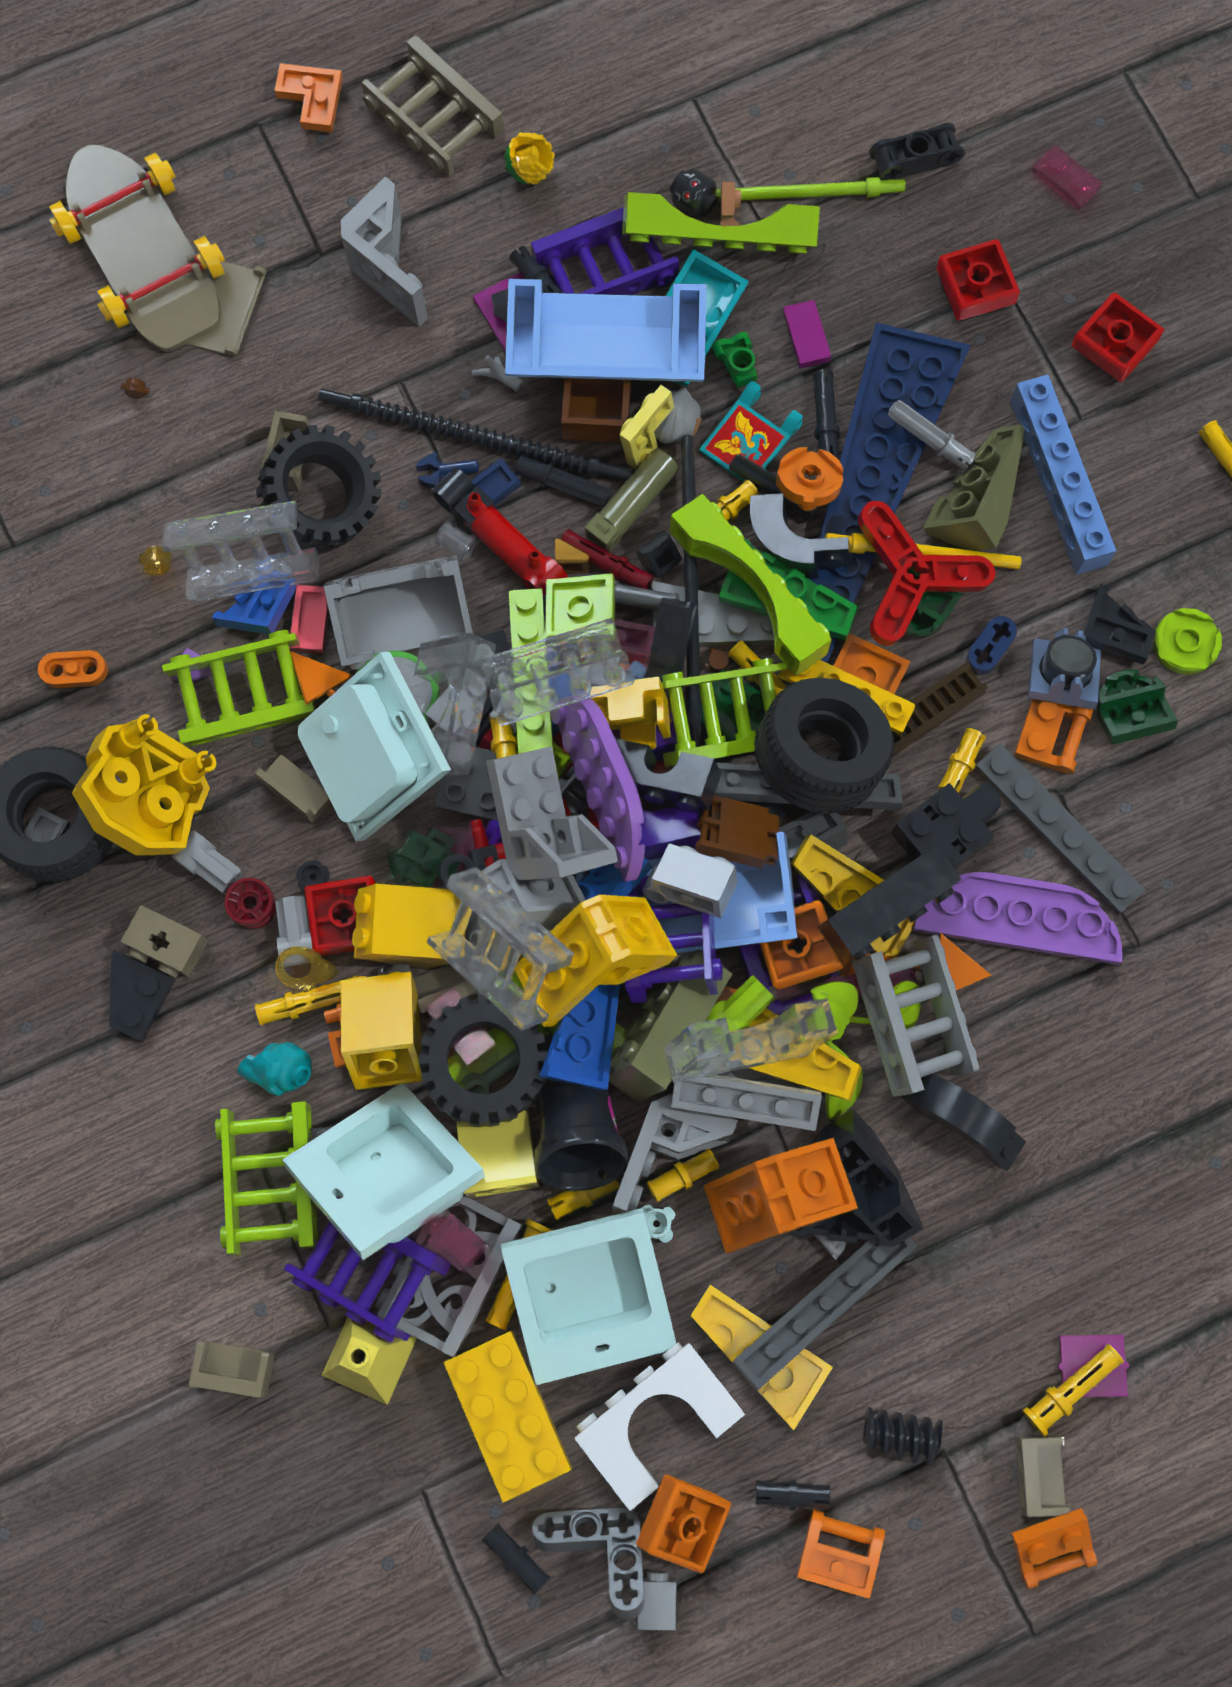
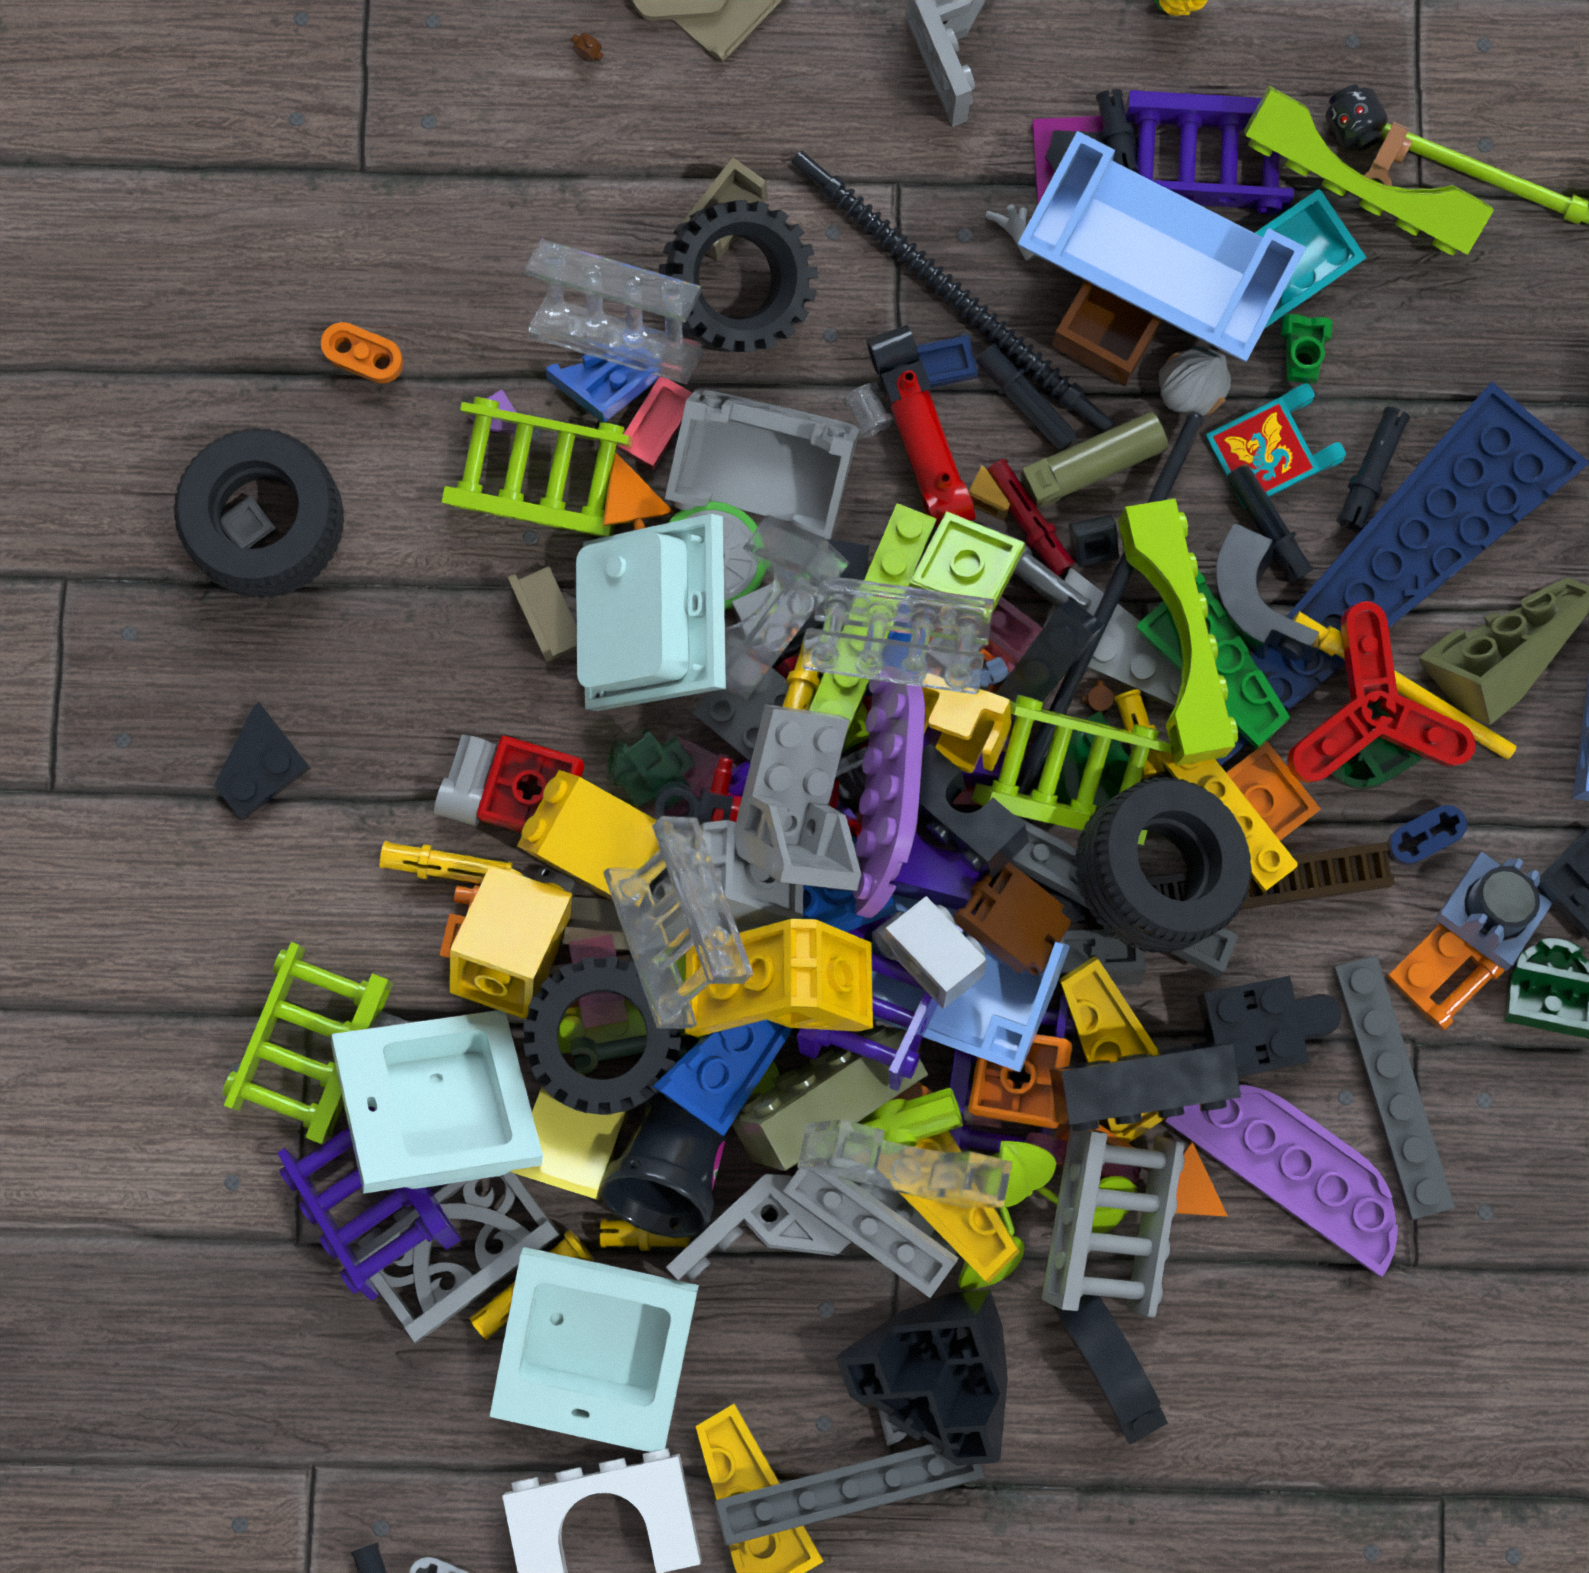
camera: 25 degrees right, 5 degrees up
(150, 771) = (349, 557): yellow brick -> none
(151, 927) = (307, 697): dark tan brick -> none
(155, 560) = (511, 268): clear yellow plate -> none
(203, 859) = (403, 644): light grey piece -> none
(231, 1369) = (171, 1232): dark tan panel -> none
(250, 889) = (416, 722): dark red wheel -> none
(277, 1068) = (376, 926): teal head -> none
(307, 869) = (519, 714): black plate -> none
(320, 969) = (474, 840): clear yellow piece -> none
(381, 1368) = (335, 1309): light yellow slope -> none
(441, 470) = (895, 317): dark blue bar -> none
(456, 1242) = (477, 1220): clear pink brick -> none
(508, 1416) = (443, 1434): yellow brick -> none
(638, 432) = (1139, 388): light yellow plate -> none
(665, 1217) = (722, 1303): light aqua plate -> none
(683, 1175) = (764, 1267): yellow pin -> none
(736, 500) = (1214, 519): yellow pin -> none
(780, 1195) = (858, 1348): orange bracket -> none
(806, 334) = (1403, 354): magenta tile -> none
(807, 492) = (1300, 552): orange plate -> none
(941, 442) = (1493, 566): light grey axle -> none
(963, 760) = (1321, 954): yellow pin -> none

